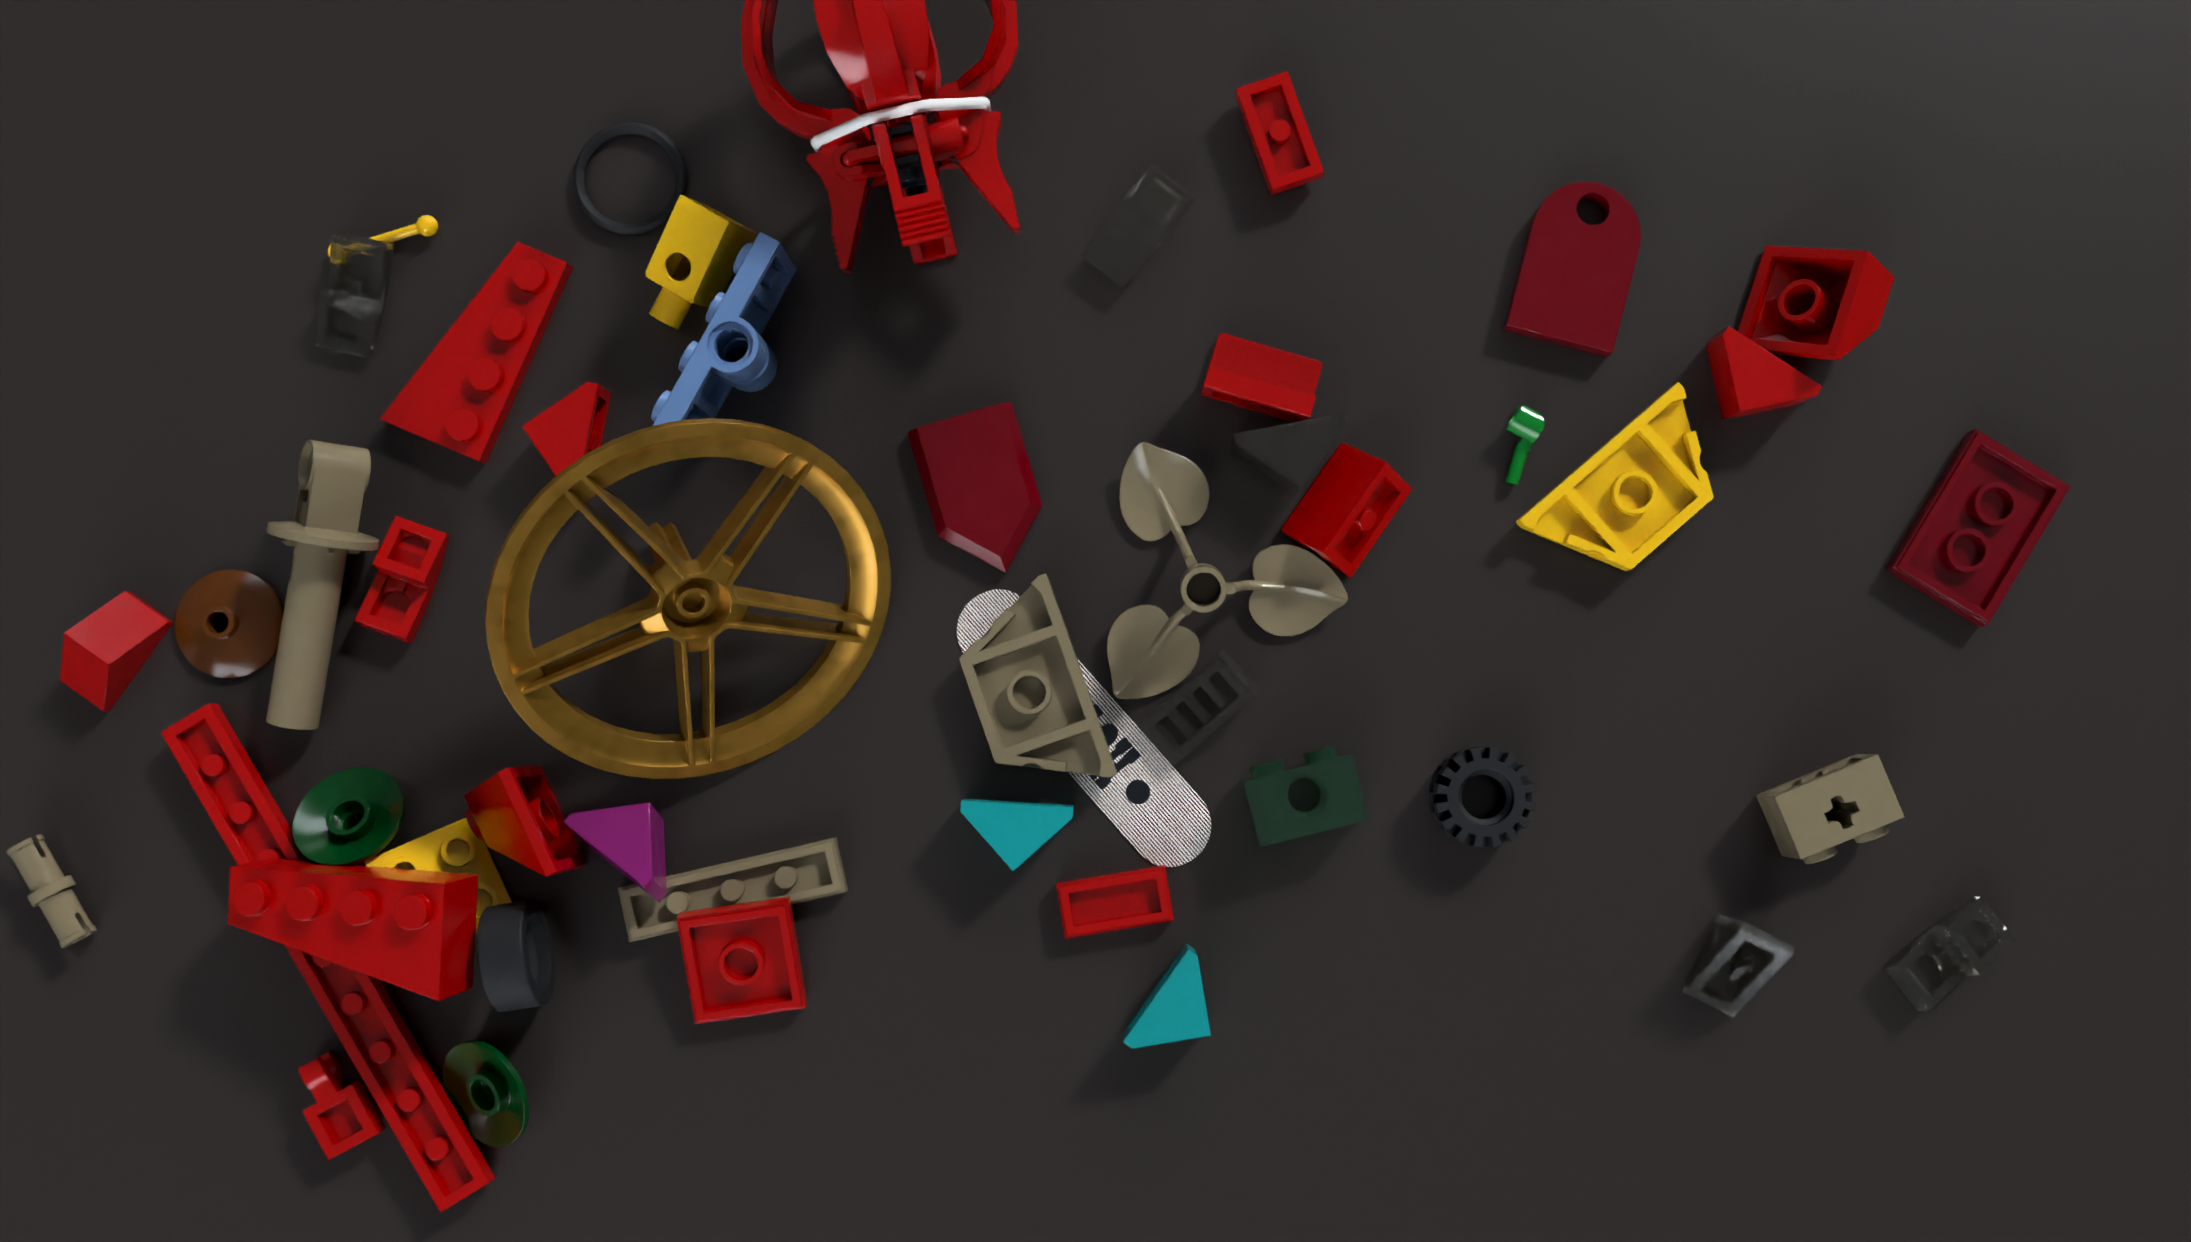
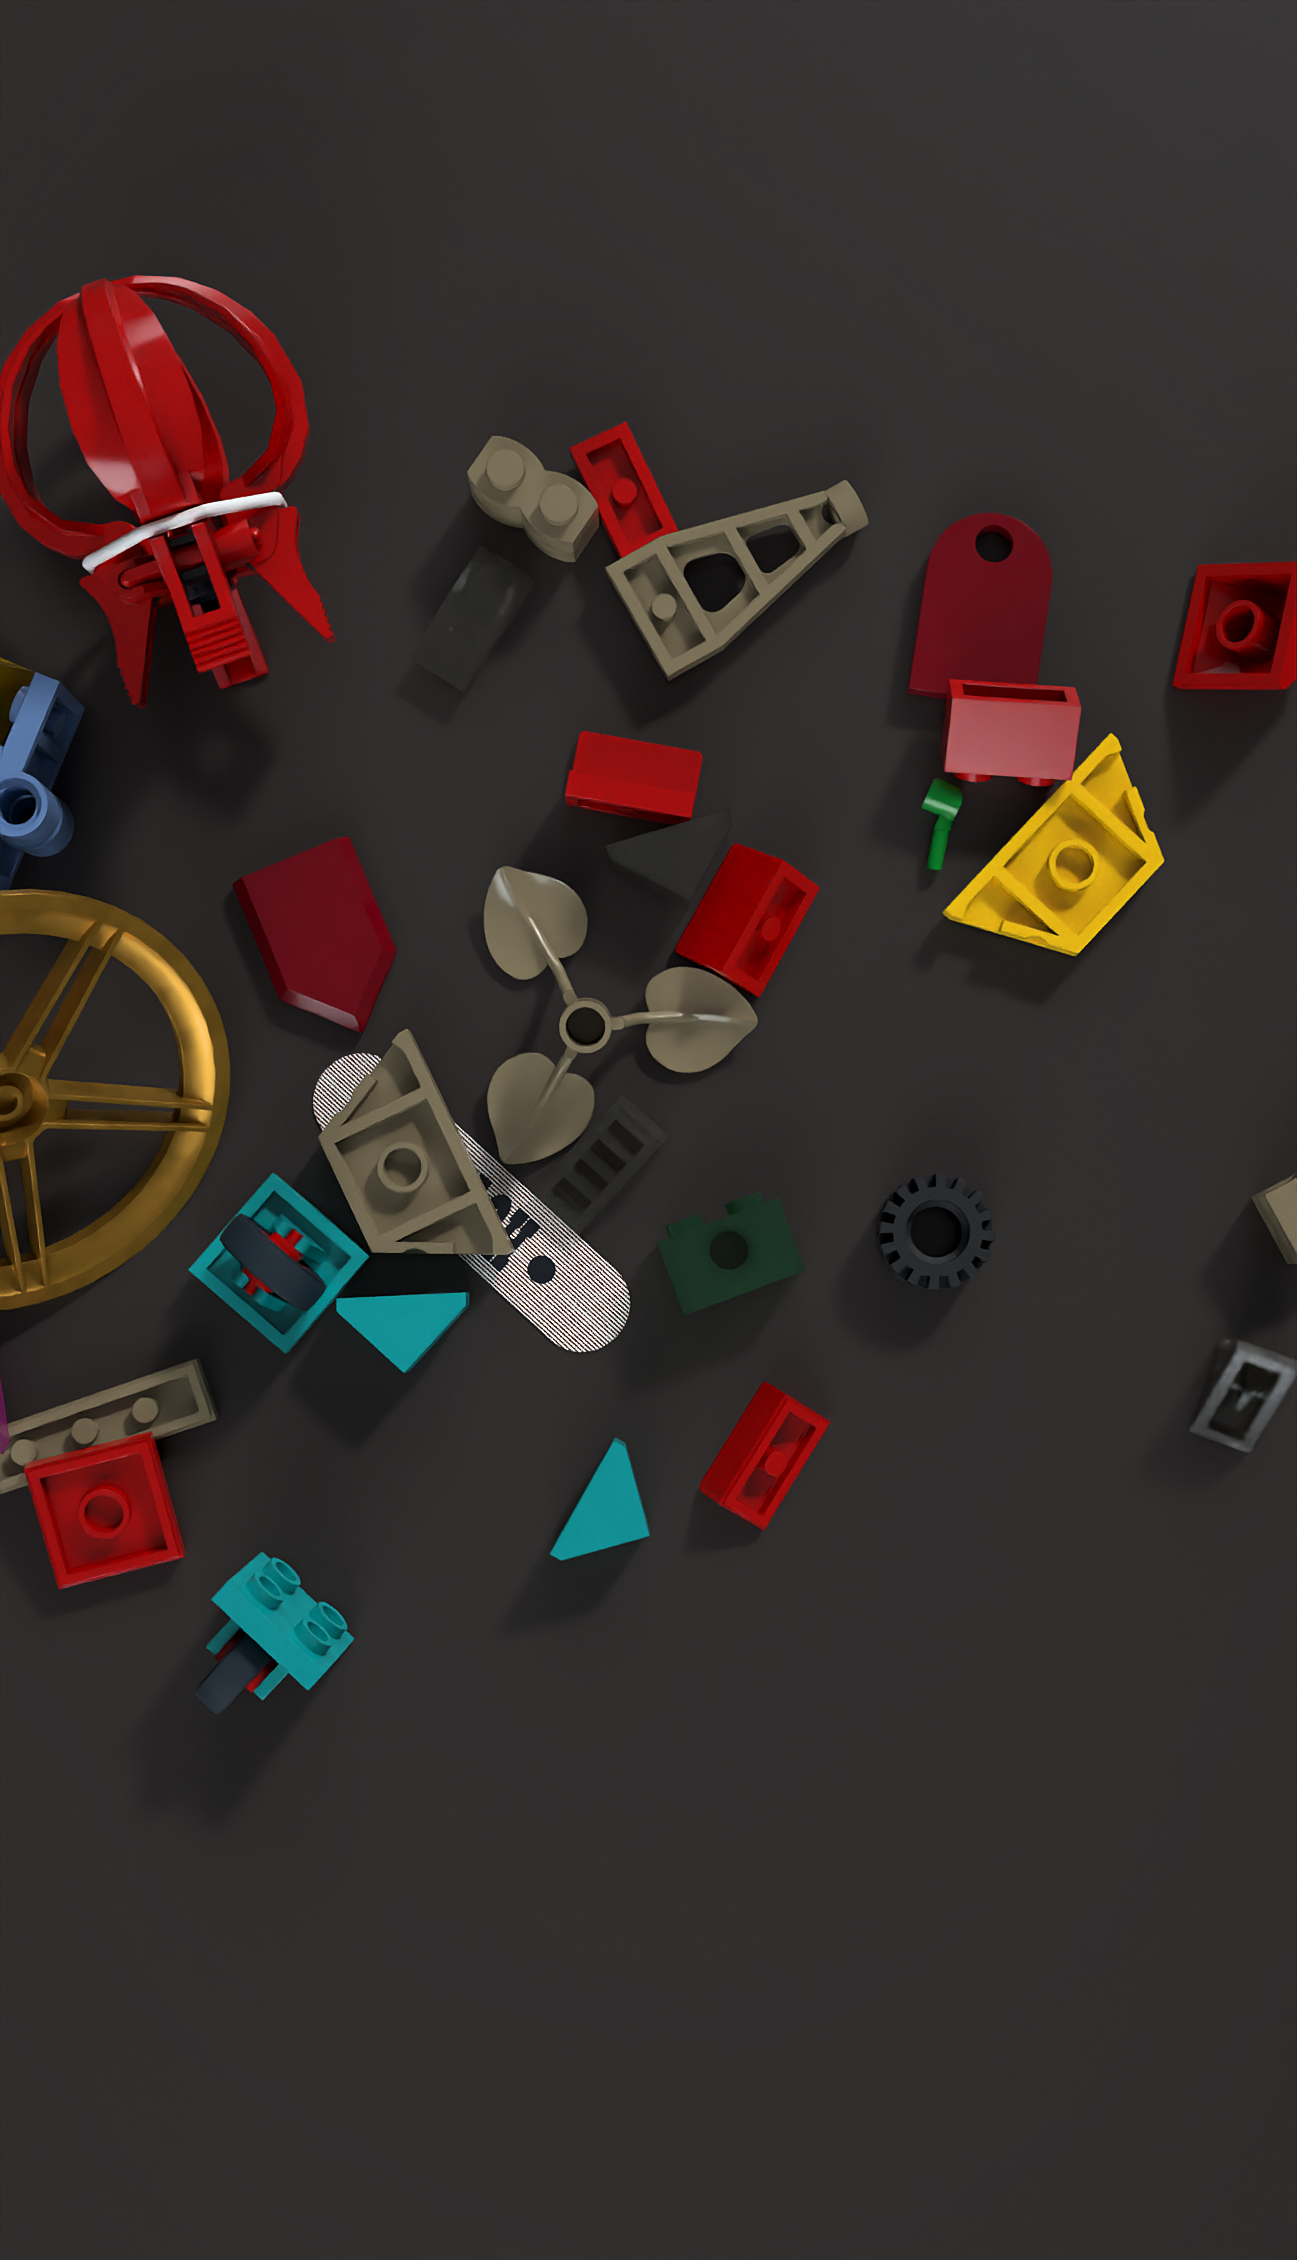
camera: 10 degrees left, 0 degrees up
(874, 1086) = (278, 1625): none -> teal plate
(914, 763) = (280, 1263): none -> teal plate
(1114, 901) = (527, 1397): red tile -> none
(1190, 122) = (548, 505): none -> dark tan brick
(1306, 236) = (664, 604): none -> dark tan plate
(1313, 973) = (763, 1455): none -> red slope
(1592, 371) = (1010, 731): none -> red brick
(1752, 378) = (1196, 720): red slope -> none

